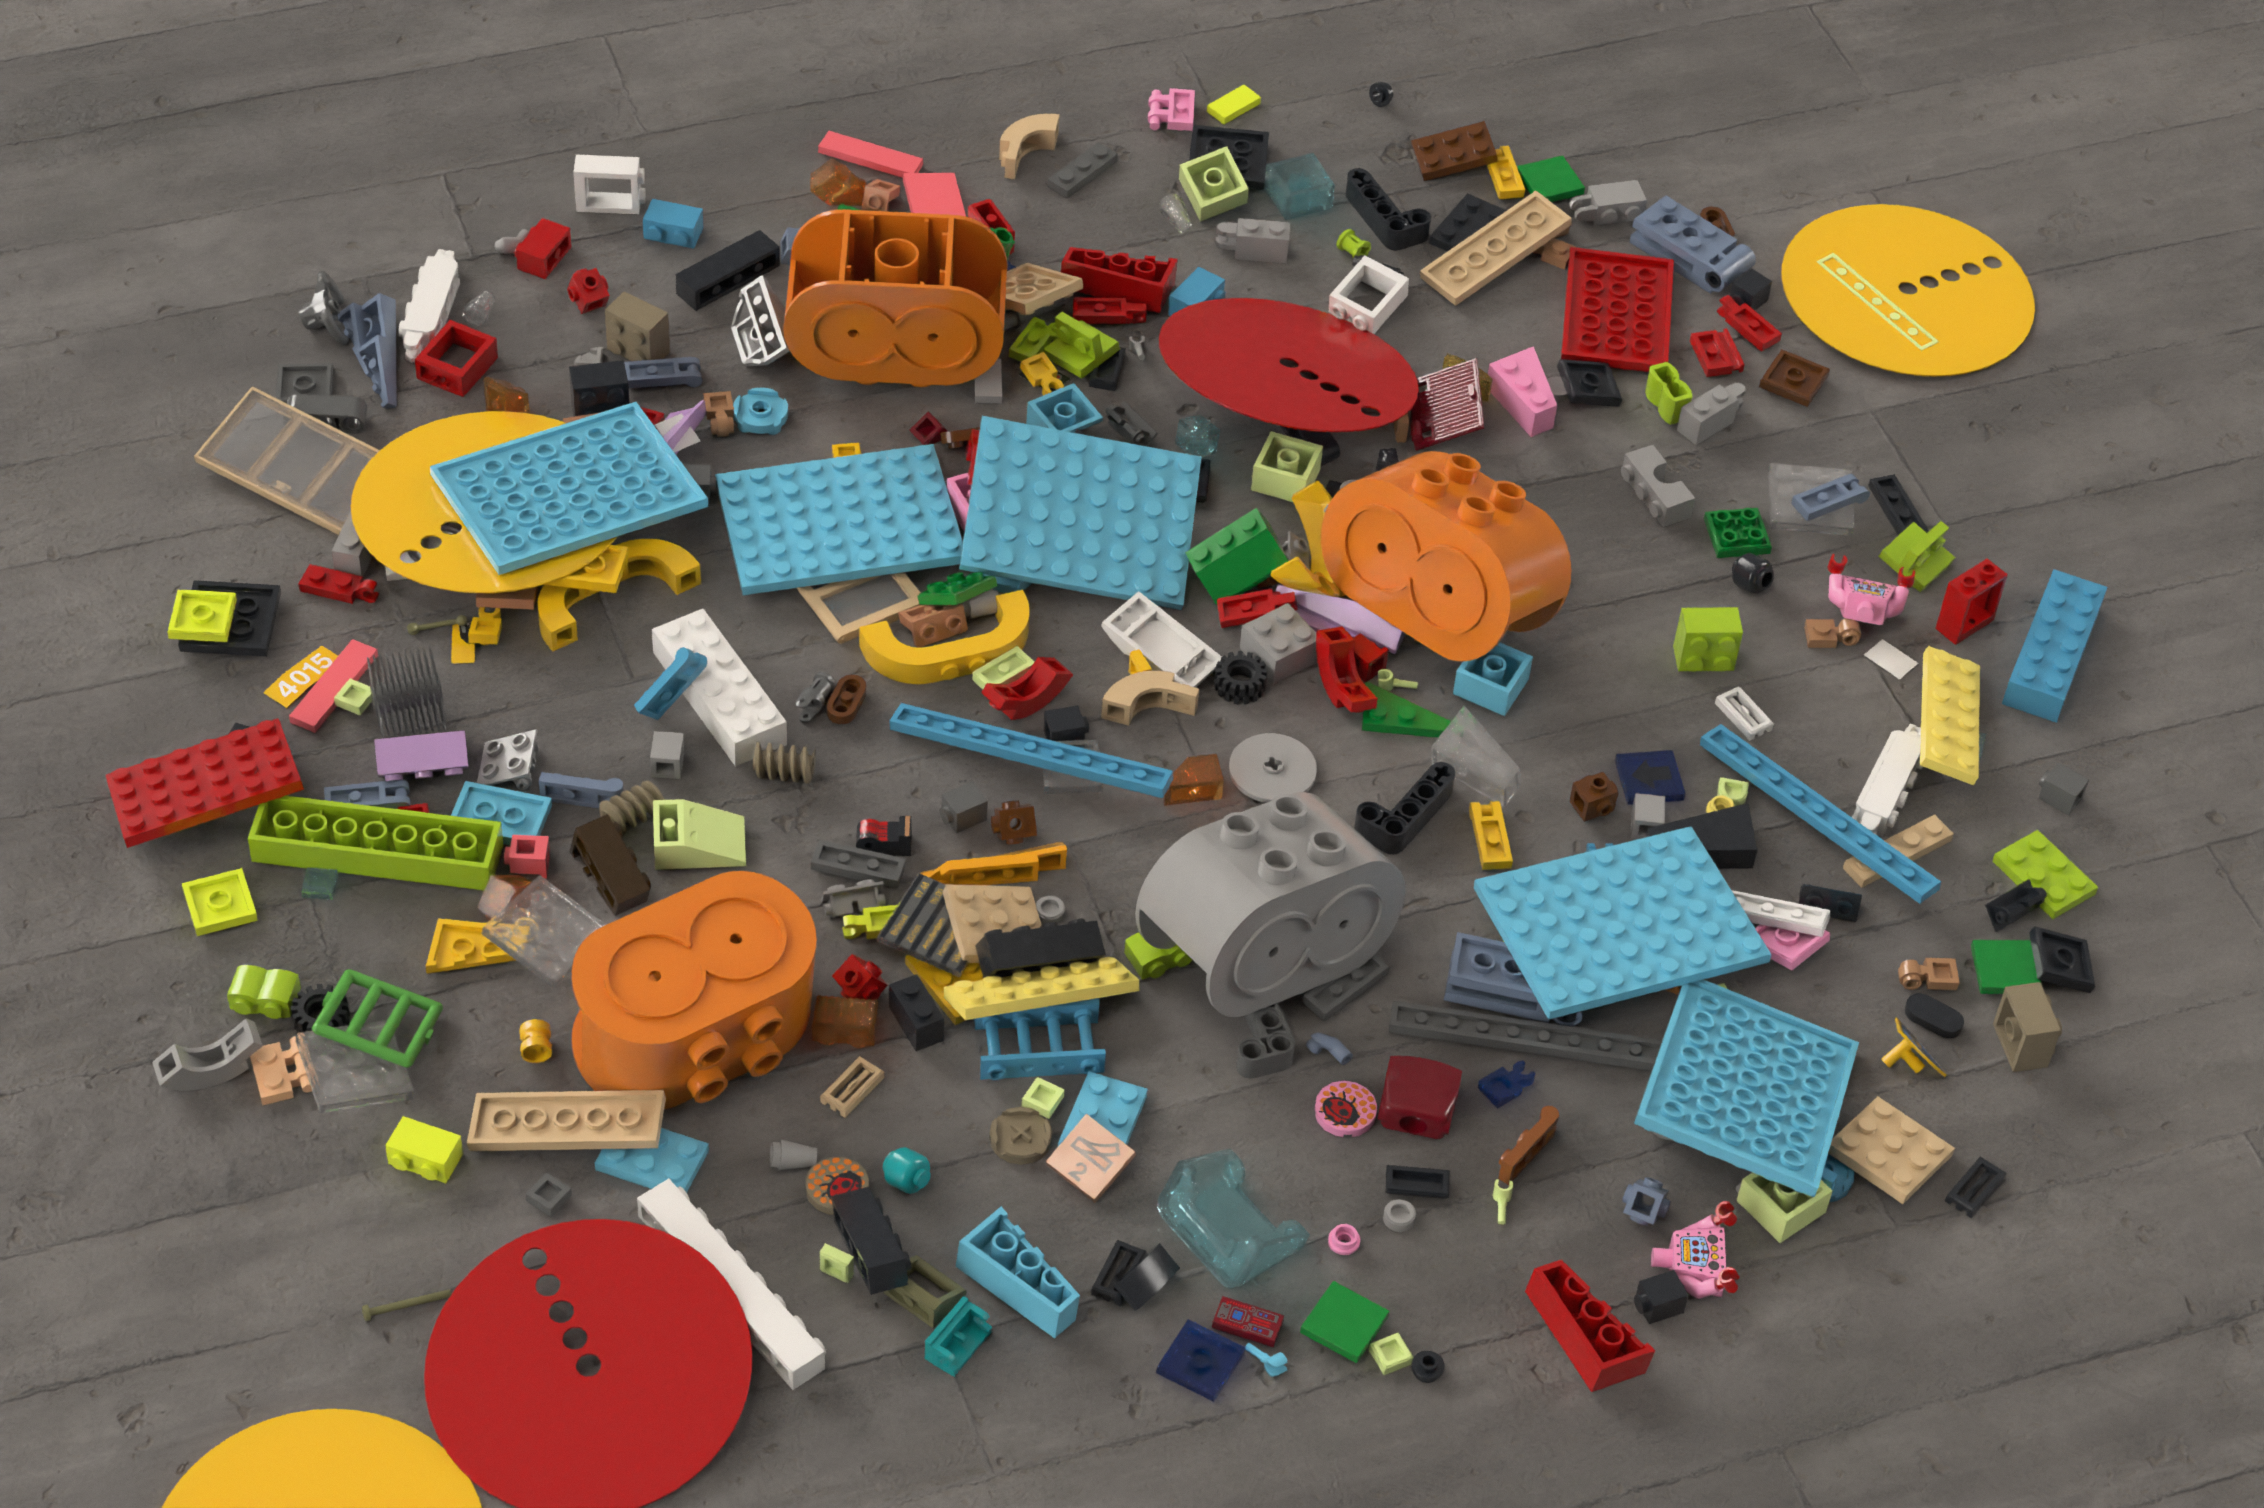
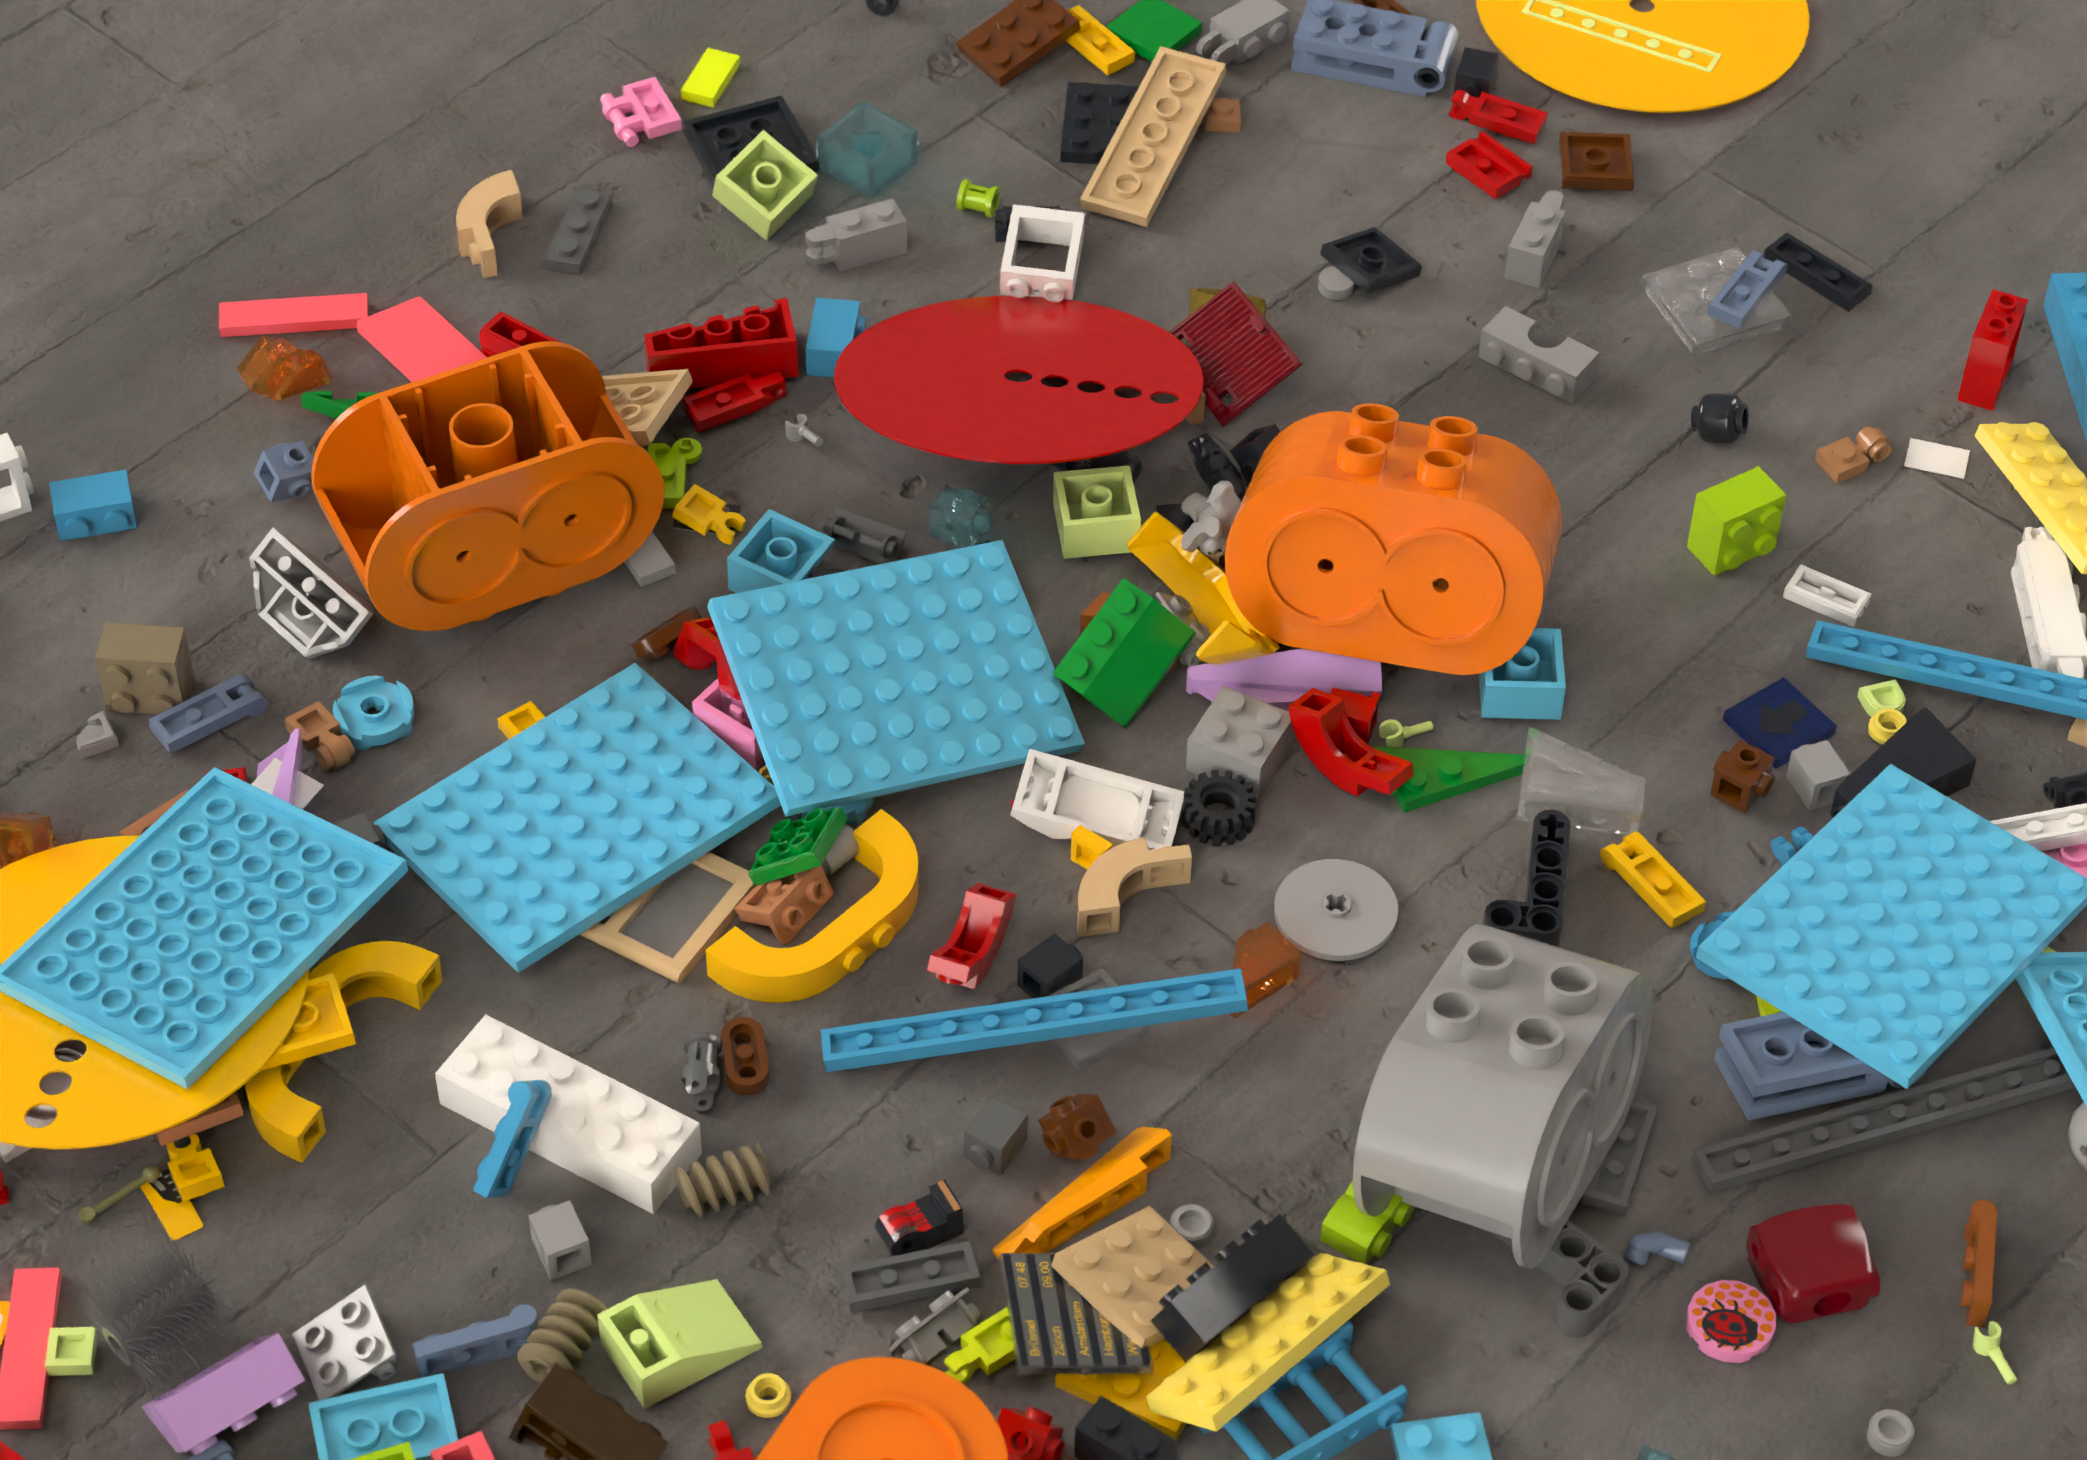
camera: 25 degrees left, 0 degrees up
(588, 290) = (38, 640): red brick -> none
(598, 387) = (147, 771): black brick -> none
(727, 270) = (206, 539): black brick -> none
(878, 195) = (344, 365): nougat bracket -> none
(928, 429) = (608, 647): dark red slope -> none
(1004, 668) = (921, 928): yellowish green plate -> none
(1079, 346) = (732, 459): lime bracket -> none
(1108, 373) = (779, 472): black tile -> none
(1175, 212) = (733, 240): clear cone -> none
(1249, 606) = (1174, 709): red hinge -> none
(1391, 226) = (988, 148): black beam -> none
(1417, 1181) = (1882, 1376): black tile -> none
(1505, 1086) = (1895, 1197): clear blue plate -> none
(1524, 391) = (1309, 300): bright pink wedge -> none
(1617, 309) = (1341, 158): red plate -> none
(1667, 391) = (1475, 235): lime brick -> none
(1737, 532) = (1662, 375): green tile -> none
(1867, 599) = (1869, 396): bright pink torso -> none
(1919, 552) = (1885, 318): lime bracket -> none

